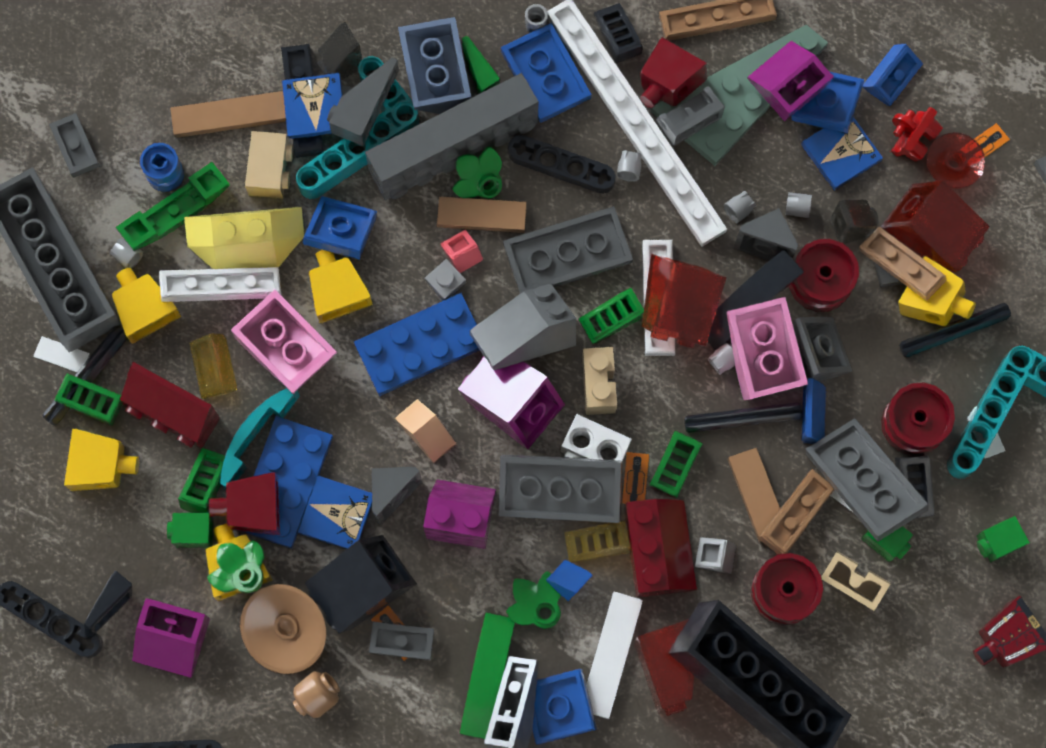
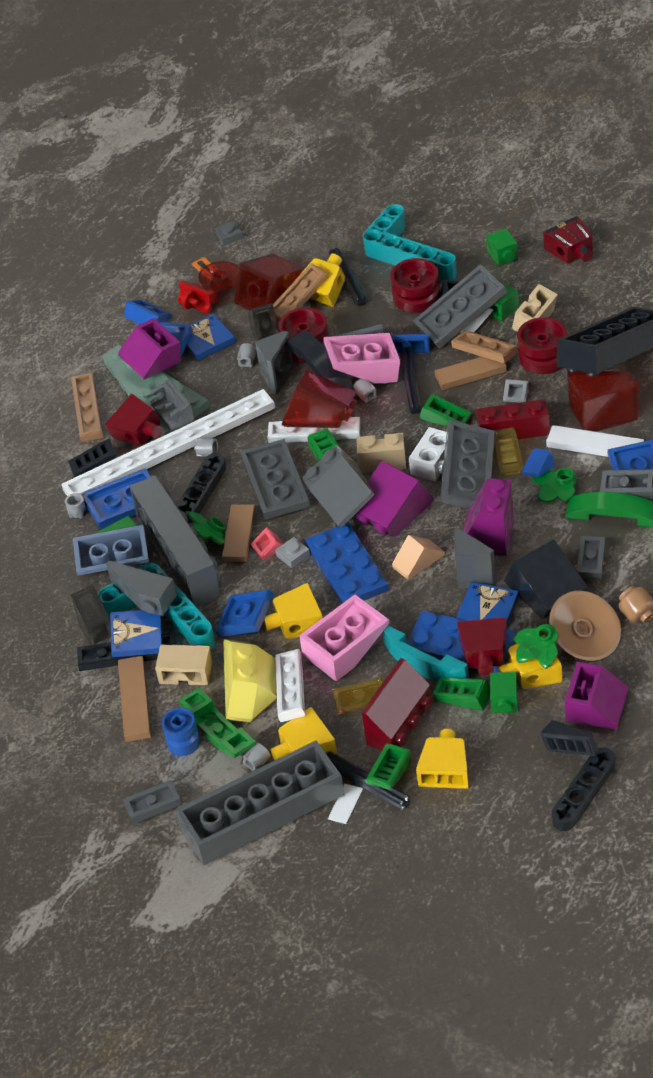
camera: 80 degrees left, 30 degrees down
(739, 207) = (245, 386): light grey hose -> none

